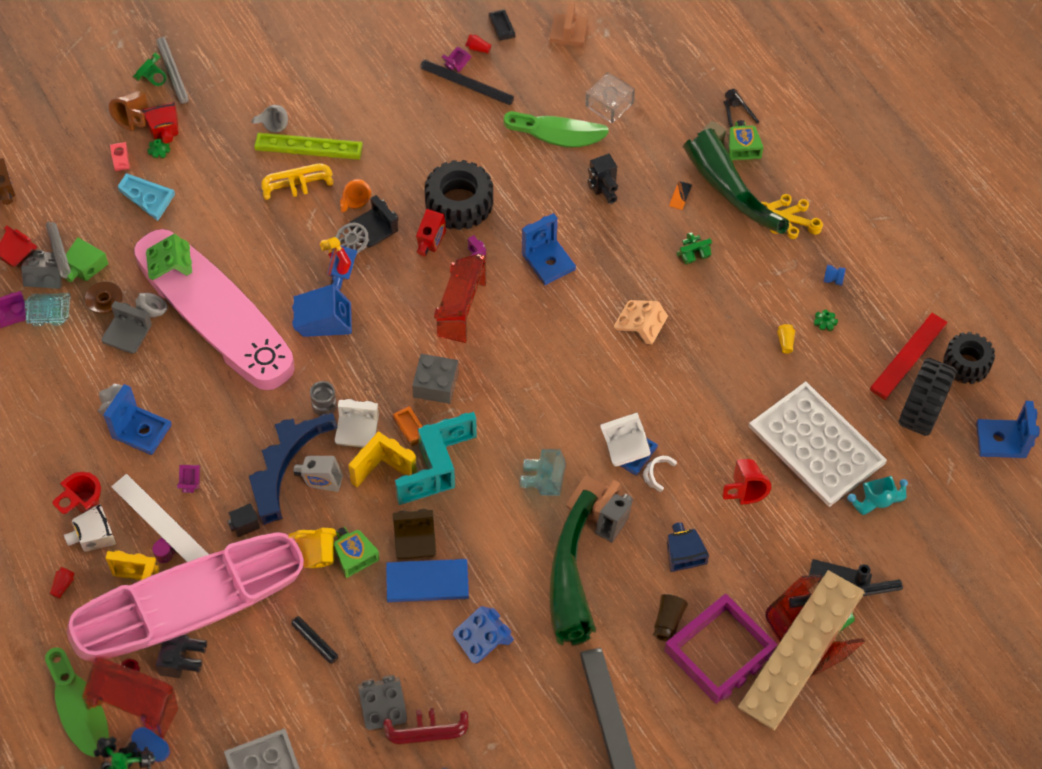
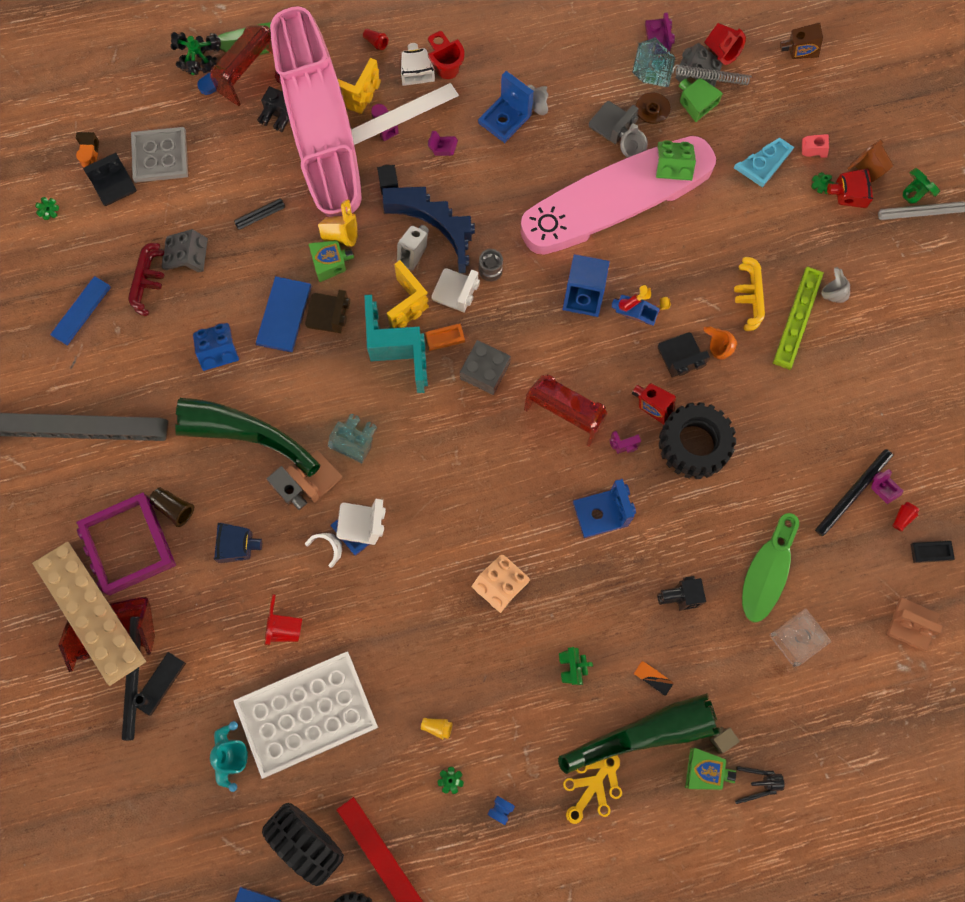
camera: 105 degrees right, 15 degrees up
(352, 237) = (669, 330): light grey wheel -> none

